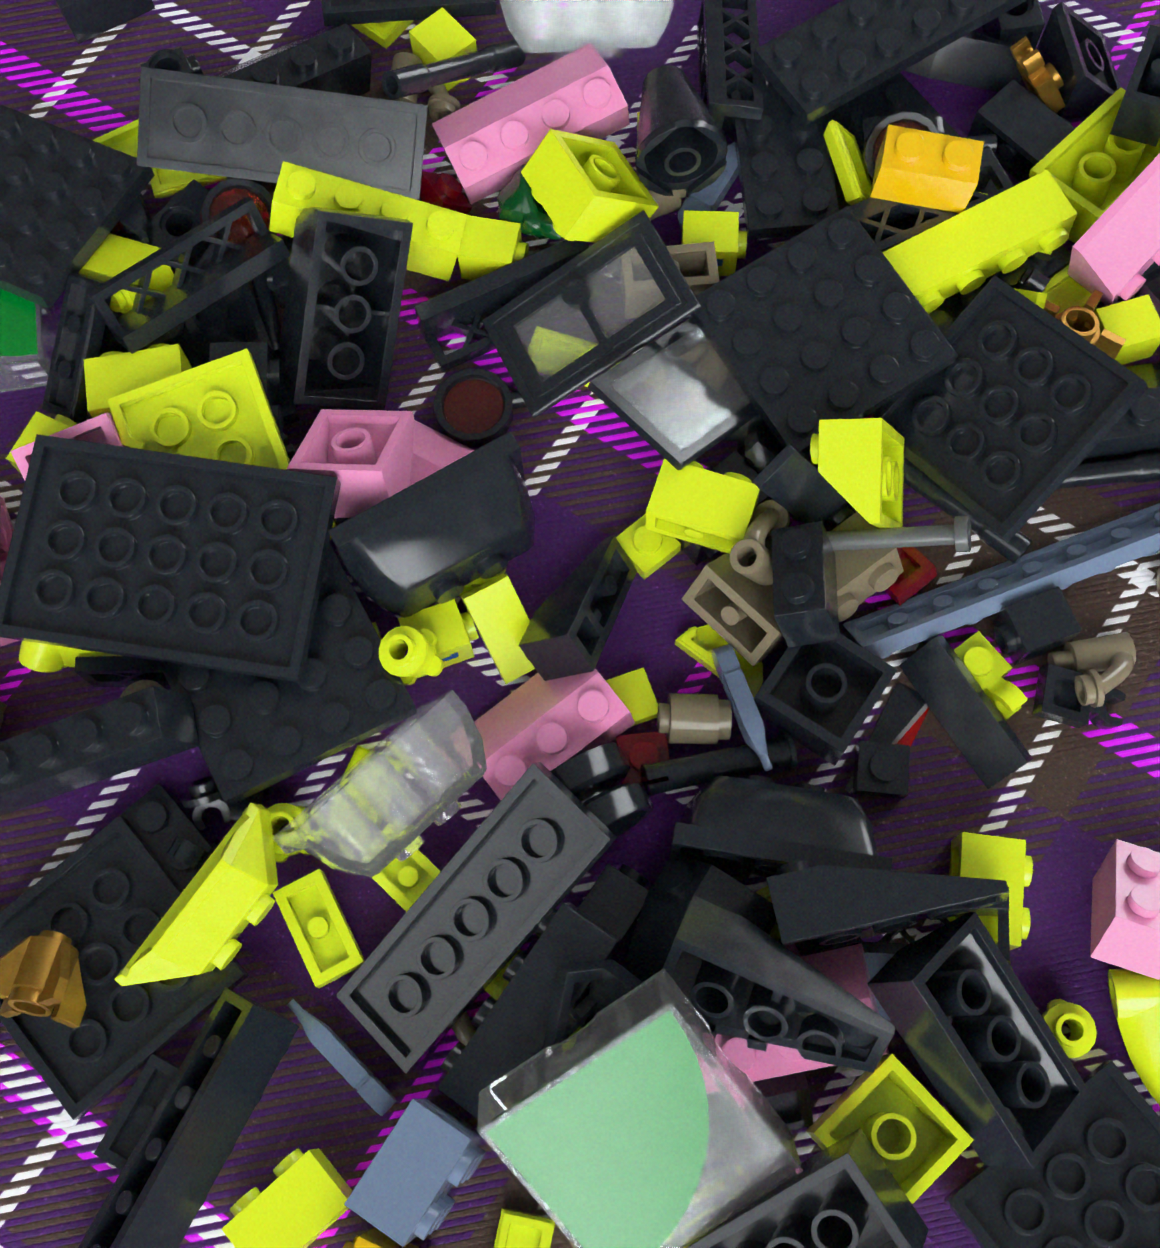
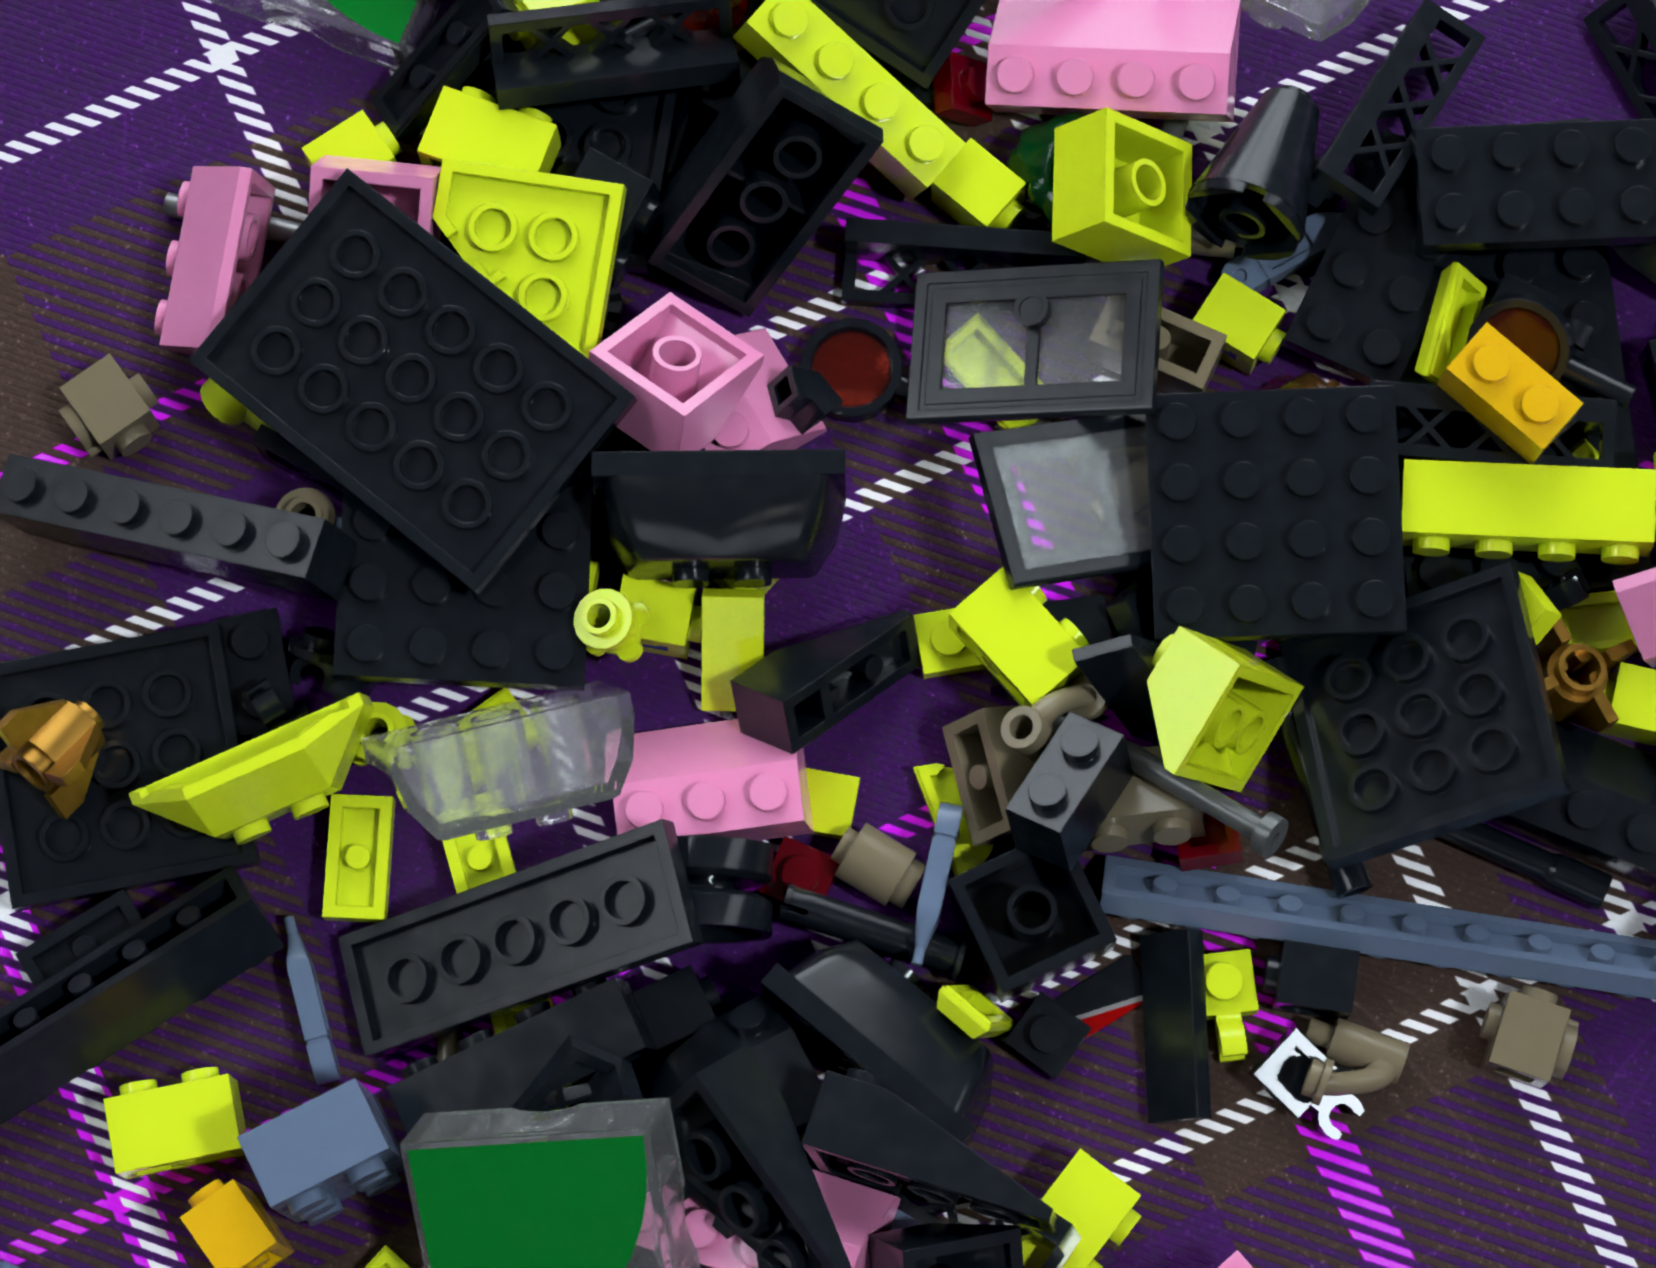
camera: 30 degrees right, 5 degrees up
(452, 435) = (802, 397): none -> black piece
(829, 780) = (973, 1011): none -> neon yellow tile

